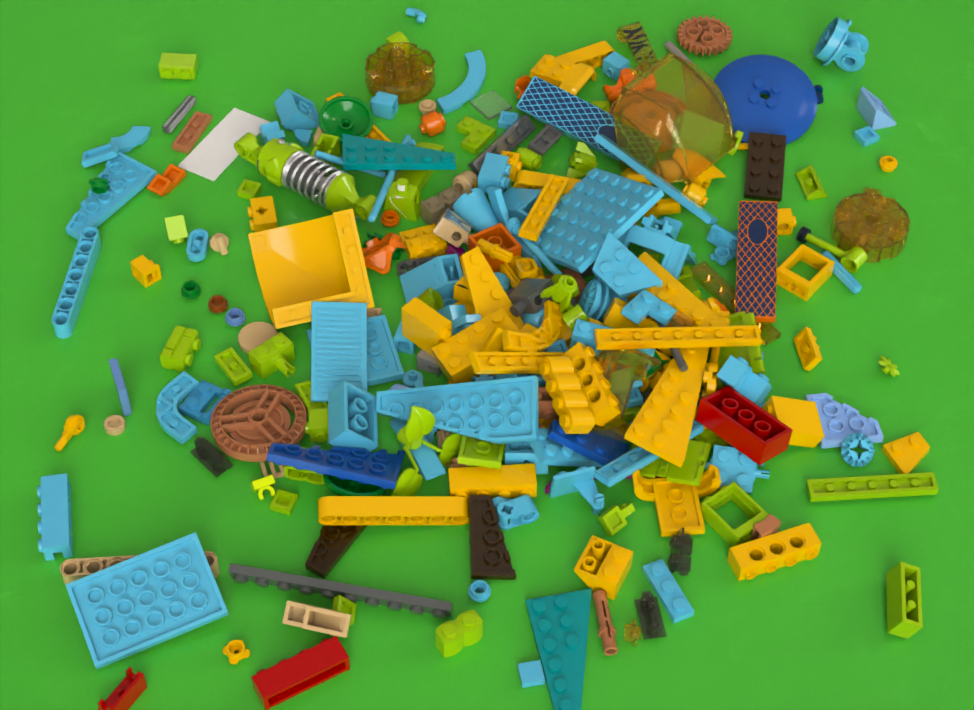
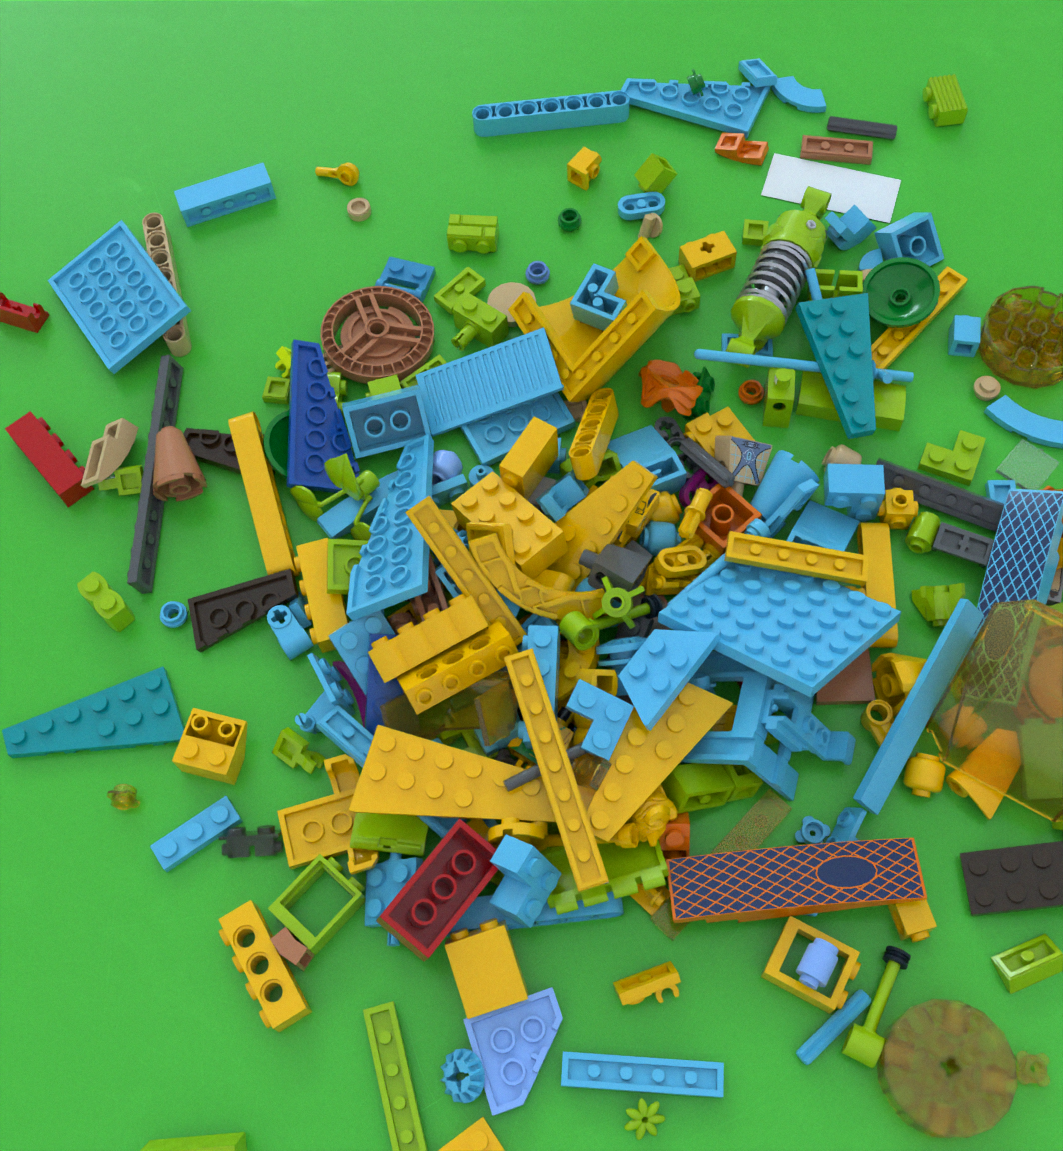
camera: 85 degrees right, 15 degrees up
(120, 387) = (395, 191): medium blue tile -> none
(168, 404) = (376, 250): medium azure plate -> none
(210, 457) = (320, 307): clear smoke hinge -> none
(217, 304) = (553, 251): dark orange plate -> none
(236, 645) = (74, 390): yellow plate -> none
(288, 280) = (595, 298): none -> medium azure brick
(346, 565) = (175, 467): none -> nougat cone
(400, 293) = (594, 434): none -> yellow beam
(432, 123) = (949, 399): orange head -> none
(435, 206) = (778, 430): dark tan piece -> none
(450, 243) = (707, 462): none -> dark grey axle
(531, 673) = (65, 690): medium azure tile -> none
(606, 629) = (128, 765): nougat pin -> none
(650, 616) = (151, 817): clear smoke hinge -> none
(810, 257) = (817, 963): none -> light blue brick
(862, 363) = (642, 1074): none -> medium azure plate

